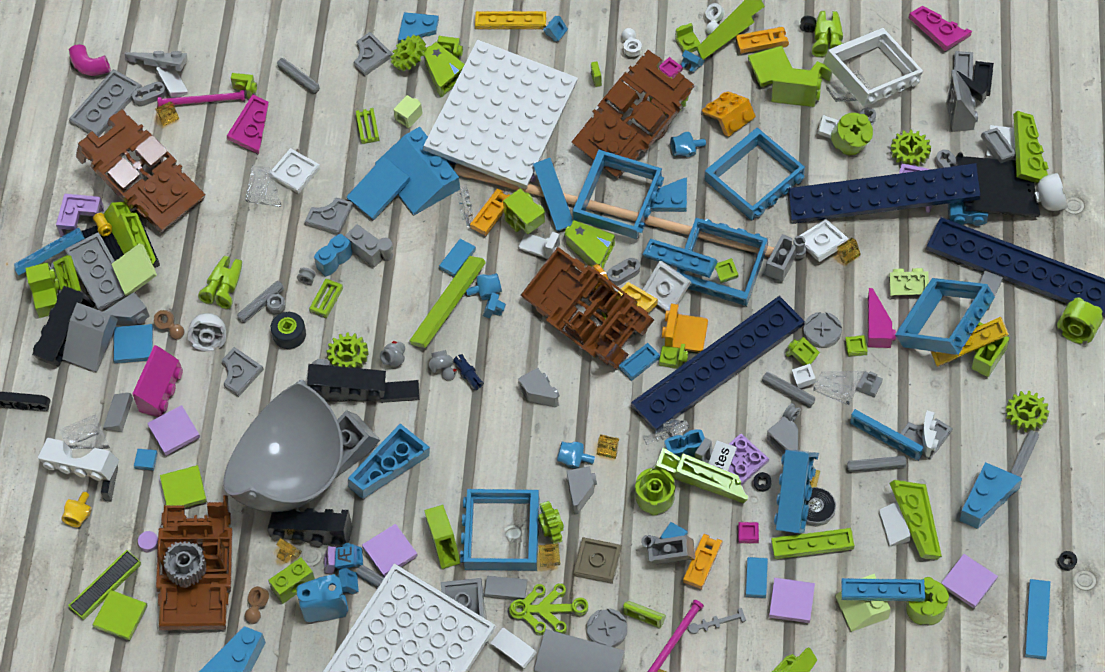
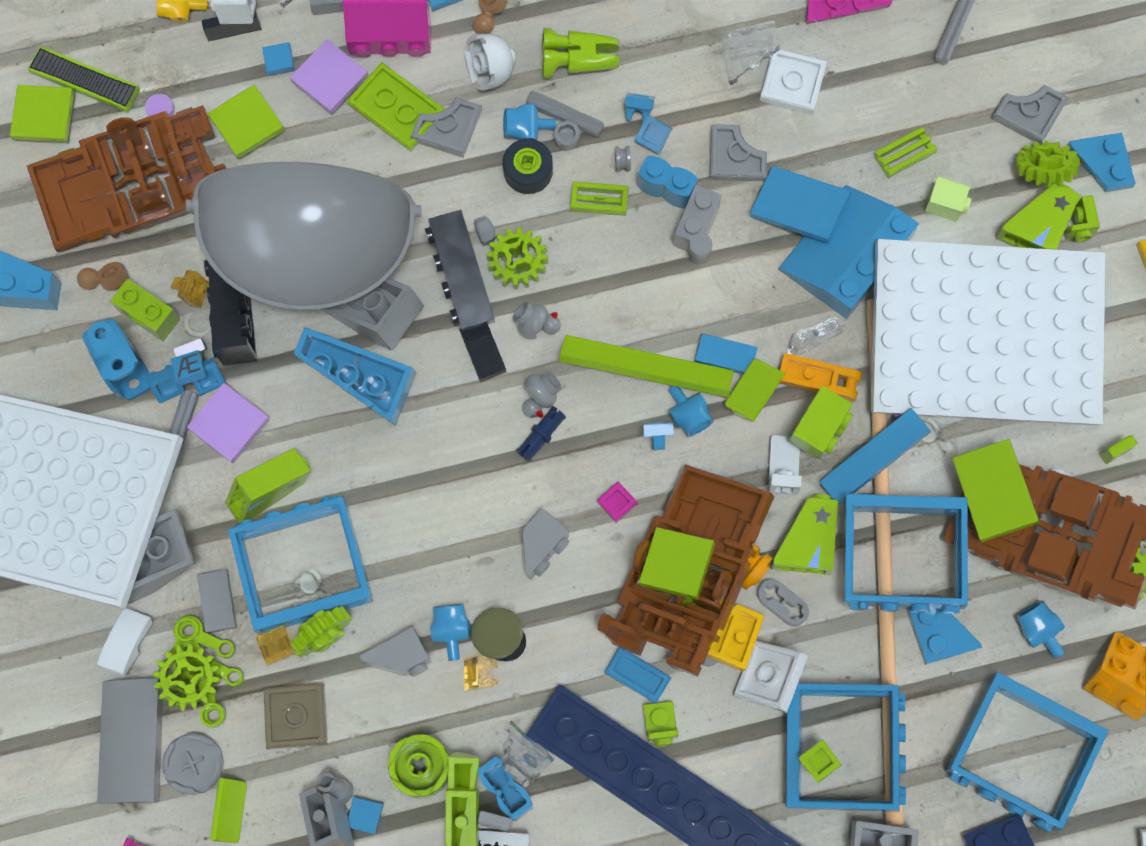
camera: 70 degrees right, 15 degrees up
(194, 563) = (119, 172): light grey brick -> none
(209, 399) = (393, 105): none -> lime tile
(258, 325) = (524, 122): none -> dark azure piece
(272, 257) = (638, 102): none -> dark azure tile
(297, 255) = (653, 134): none -> dark azure tile
(487, 246) = (753, 390): none -> lime slope
(527, 343) = (617, 502): none -> dark pink tile
(541, 610) = (200, 673): none -> lime gear
(582, 307) = (677, 563): none -> lime tile
(587, 427) = (498, 635): none -> olive piece
(599, 133) = (995, 490): none -> lime tile
(680, 258) = (820, 683): dark azure tile -> none
(684, 330) = (707, 727): light orange bracket -> none

